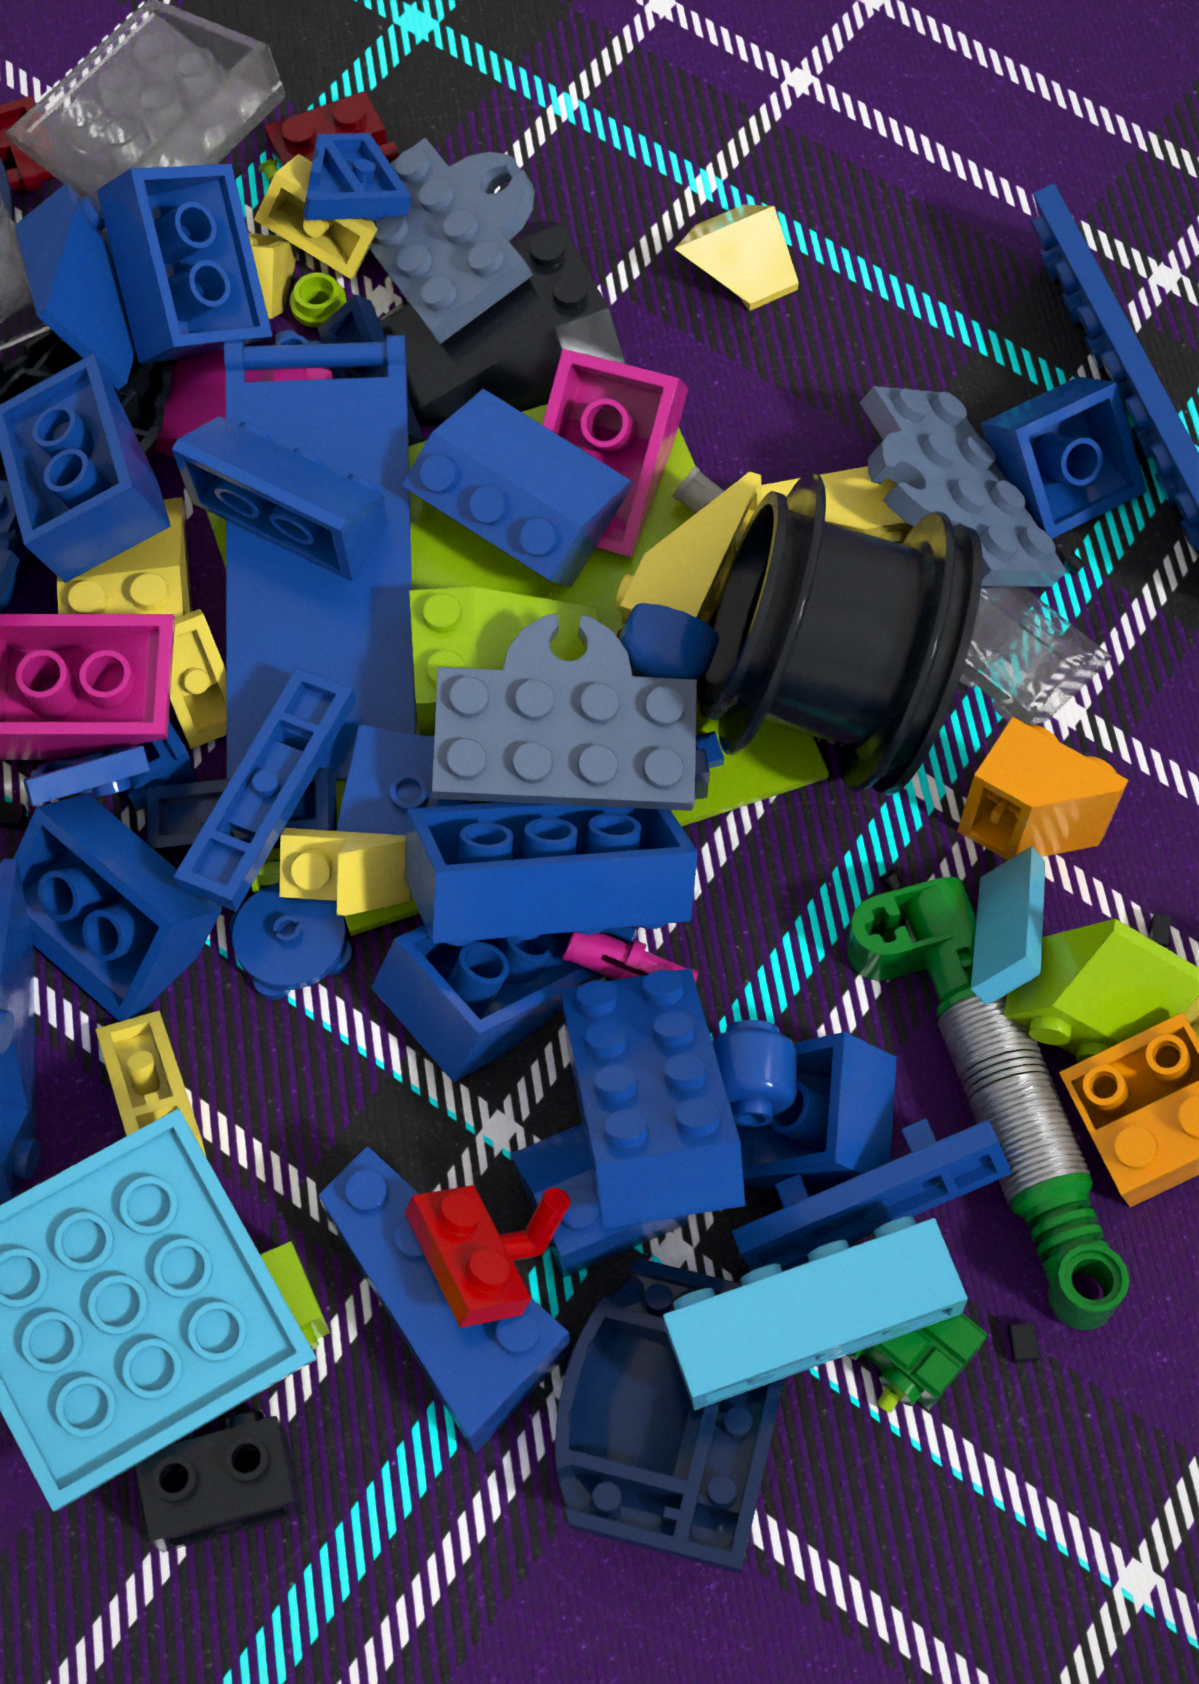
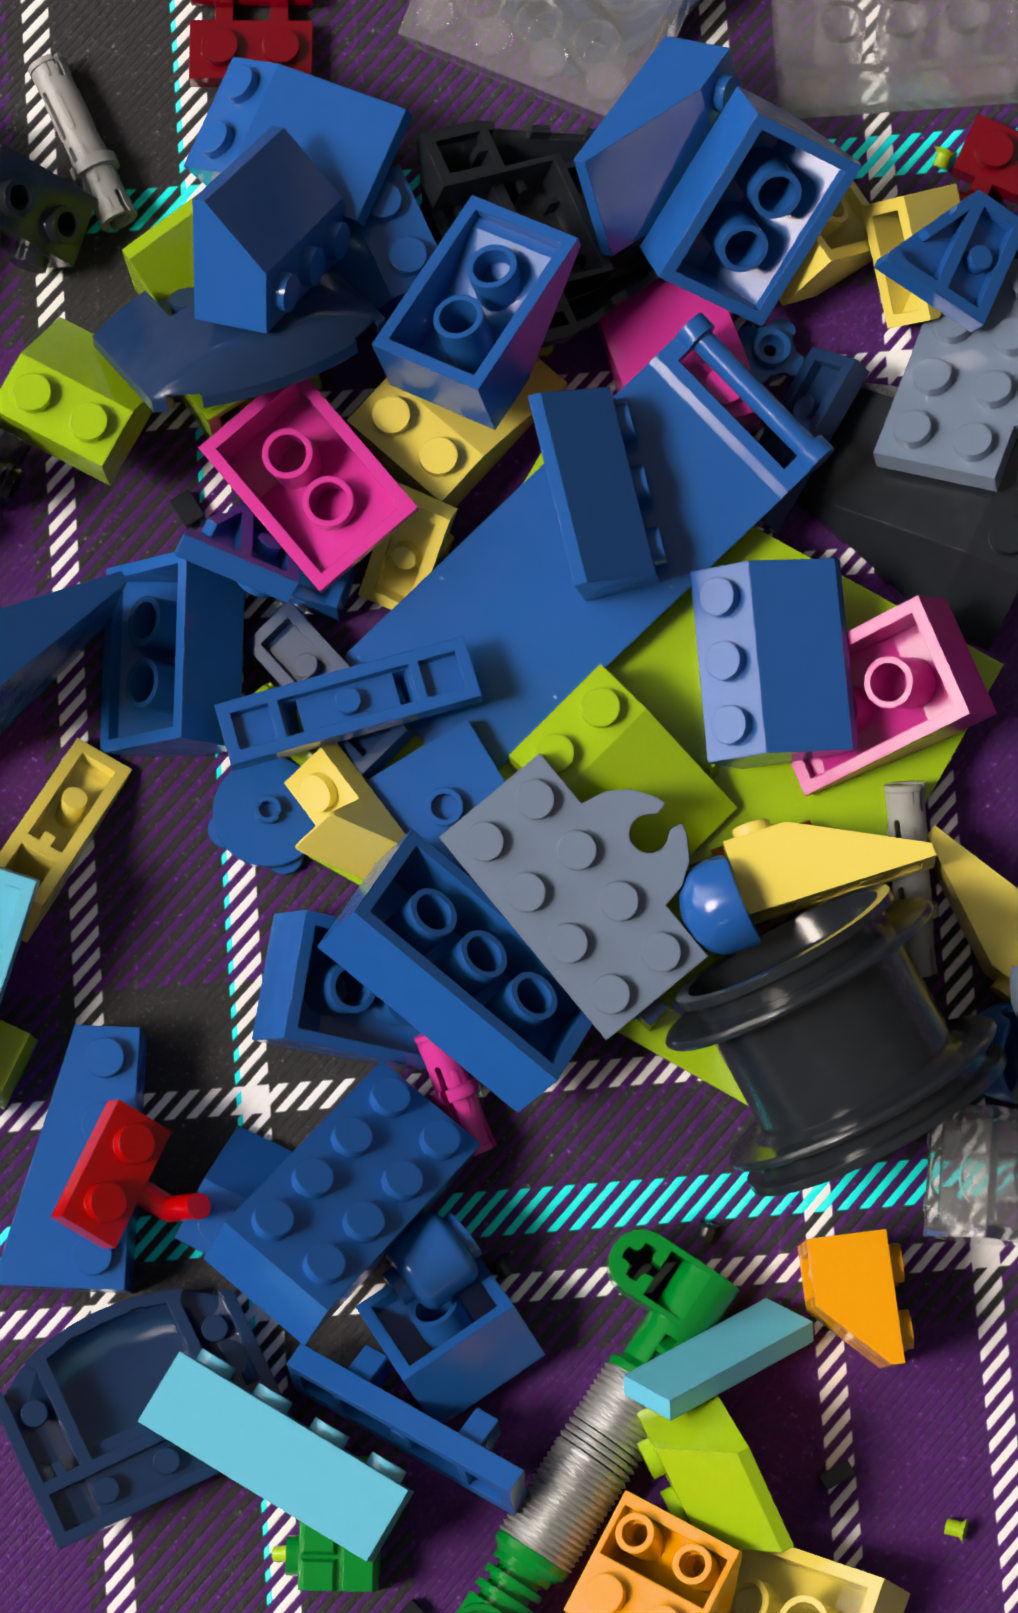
camera: 50 degrees right, 15 degrees up
(316, 289) = (847, 303): lime plate -> none

